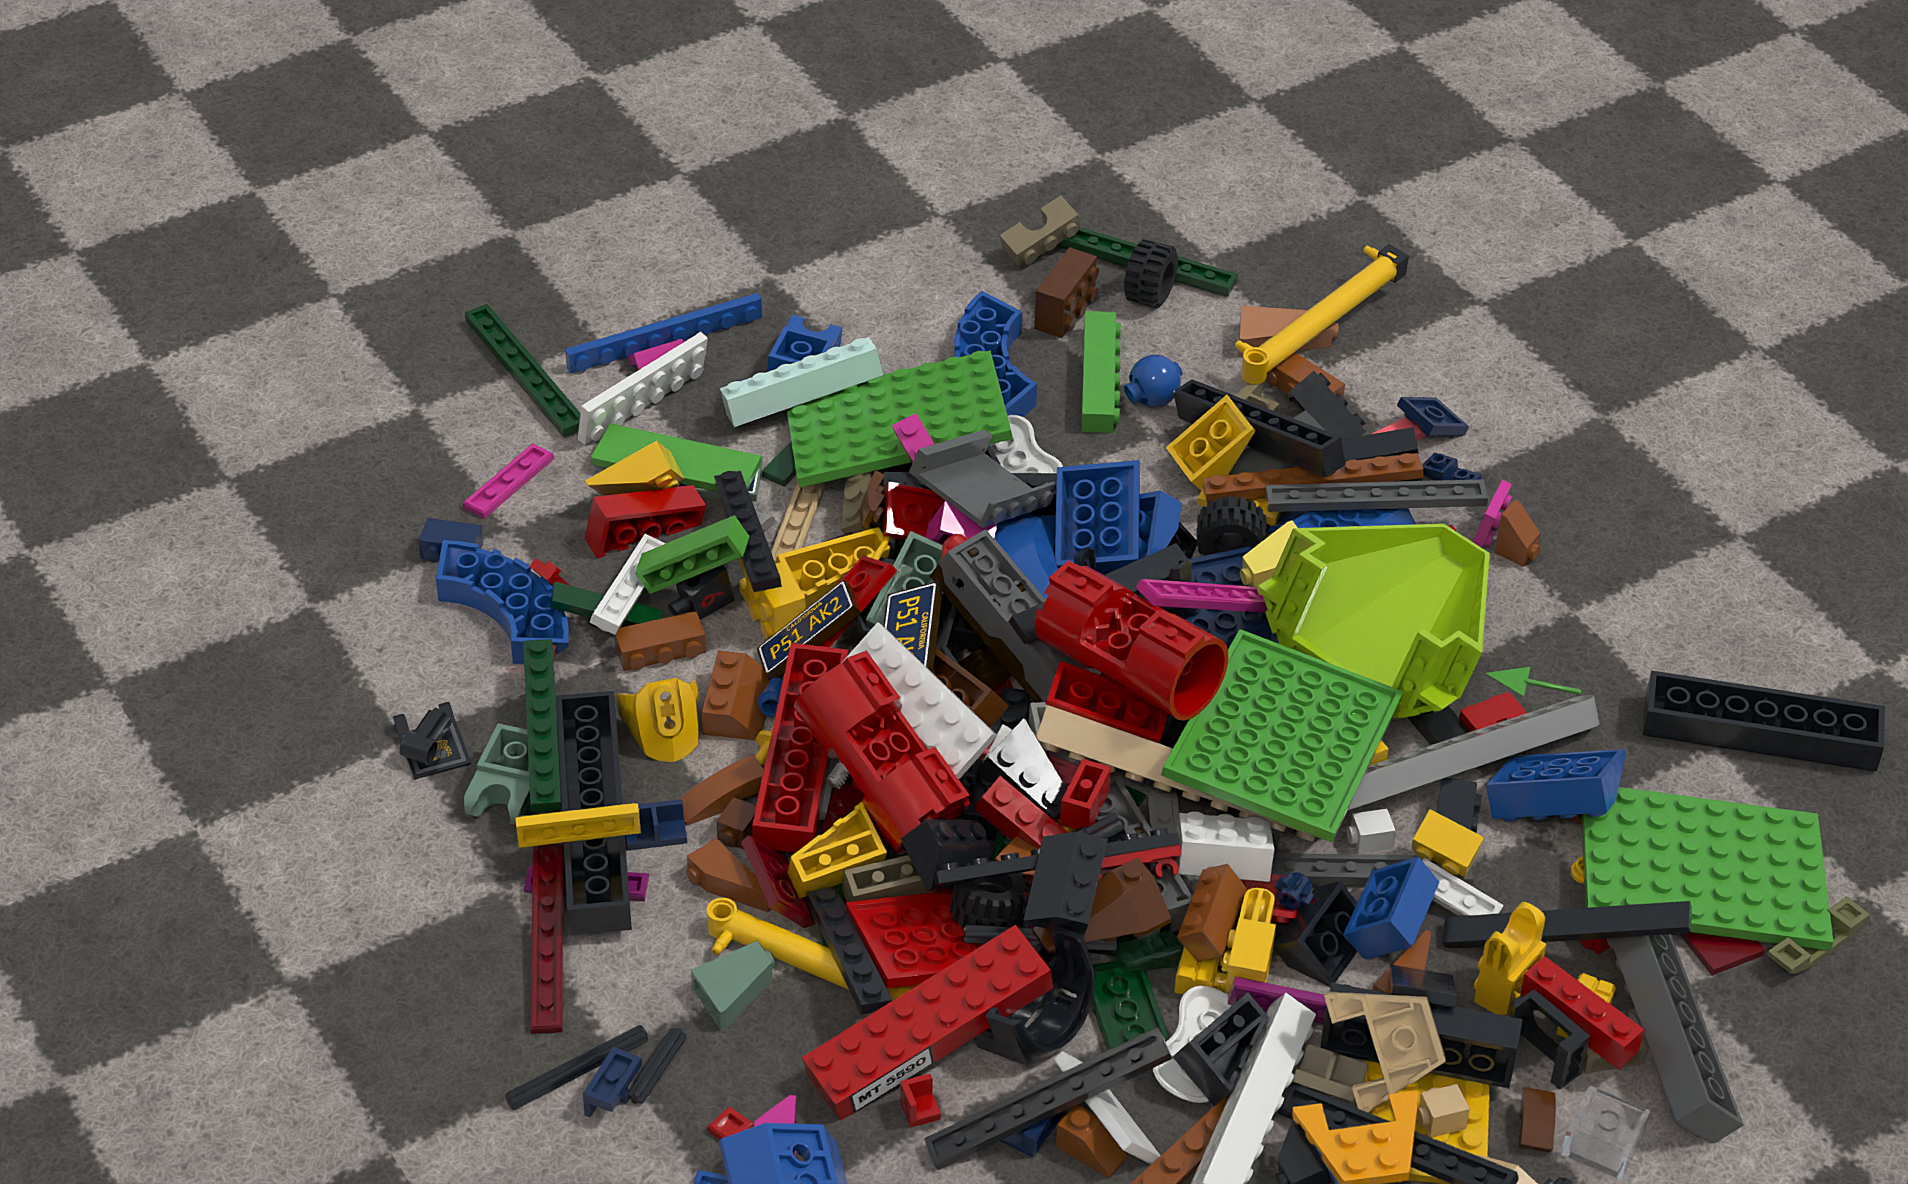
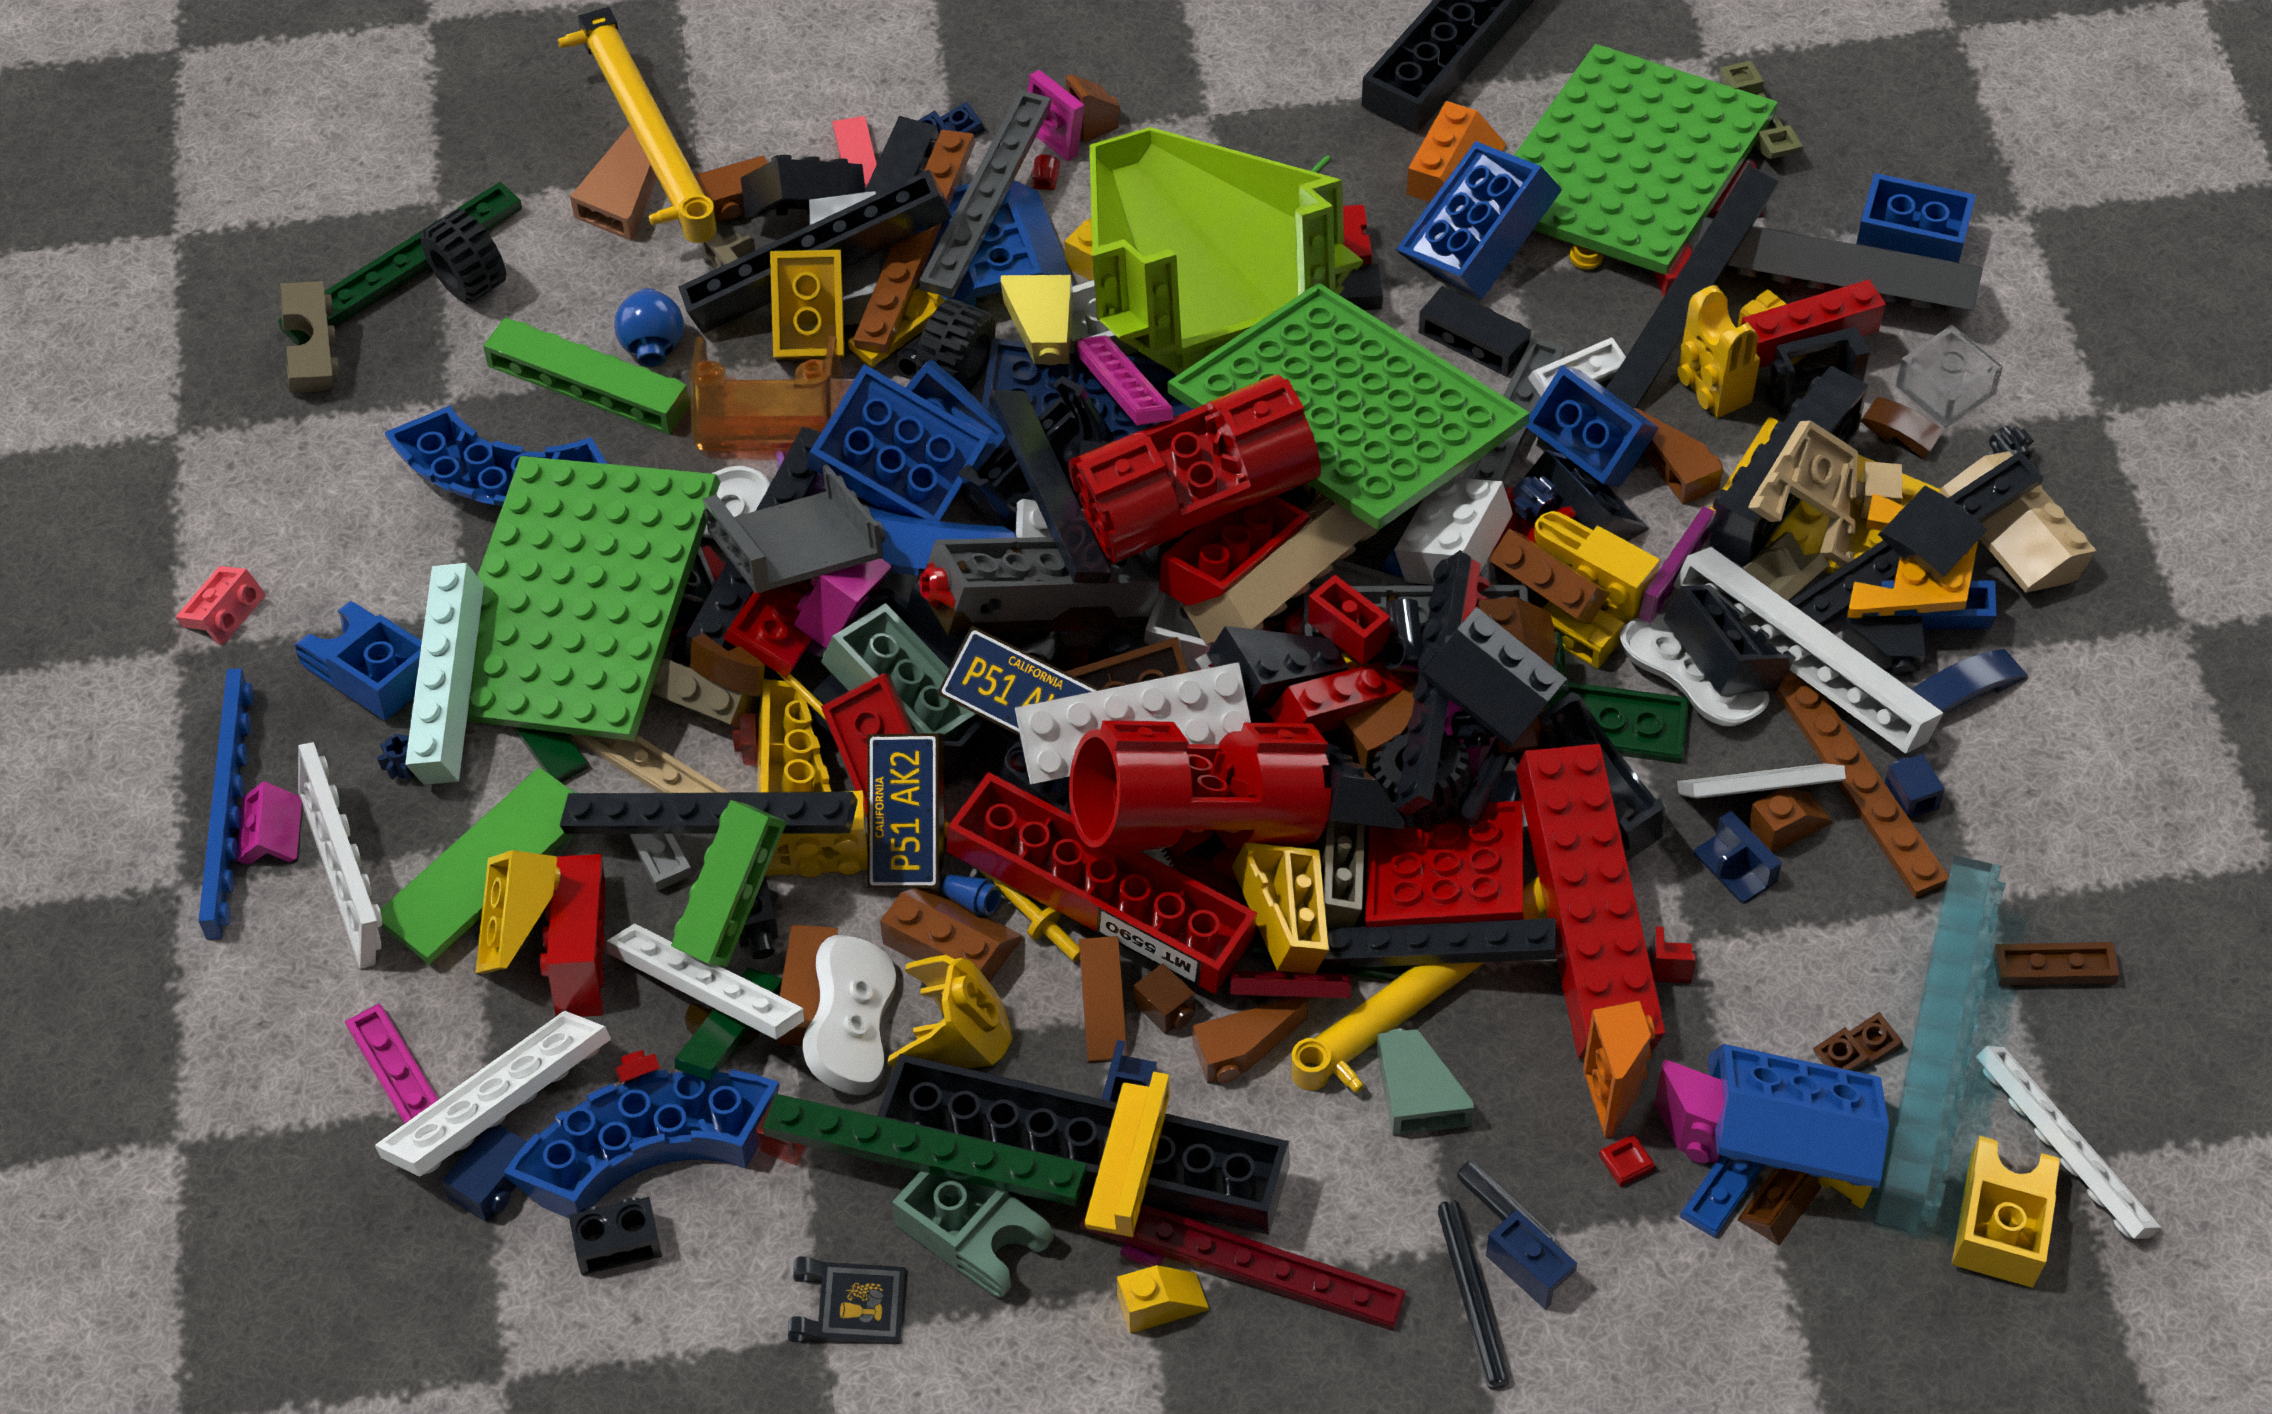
camera: 65 degrees left, 10 degrees up
(424, 741) = (859, 1308): black piece -> none
(430, 613) = (617, 1245): none -> black brick
(497, 892) = (1159, 1296): none -> yellow slope
(507, 520) = (492, 1093): none -> white plate
(524, 369) = (189, 987): dark green plate -> none
(629, 666) = (844, 1036): none -> white plate
(784, 1068) = (1617, 1060): none -> orange slope
(814, 280) = (222, 603): none -> coral bracket
(912, 435) = (673, 578): dark pink plate -> none
(1048, 1098) = (1752, 823): black plate -> none
(1066, 293) = (439, 351): reddish brown brick -> none
(1106, 442) = (761, 412): none -> clear orange windscreen
(1388, 1130) = (1932, 532): none -> black slope
(1432, 416) = (855, 103): dark blue plate -> none
(1436, 986) = (1736, 433): black tile -> none
(1447, 843) = (1529, 341): yellow brick -> none
(1476, 748) = (1393, 243): light grey beam -> none
(1646, 749) = (1445, 147): none -> orange slope
(1764, 1068) = (1915, 218): none -> blue brick

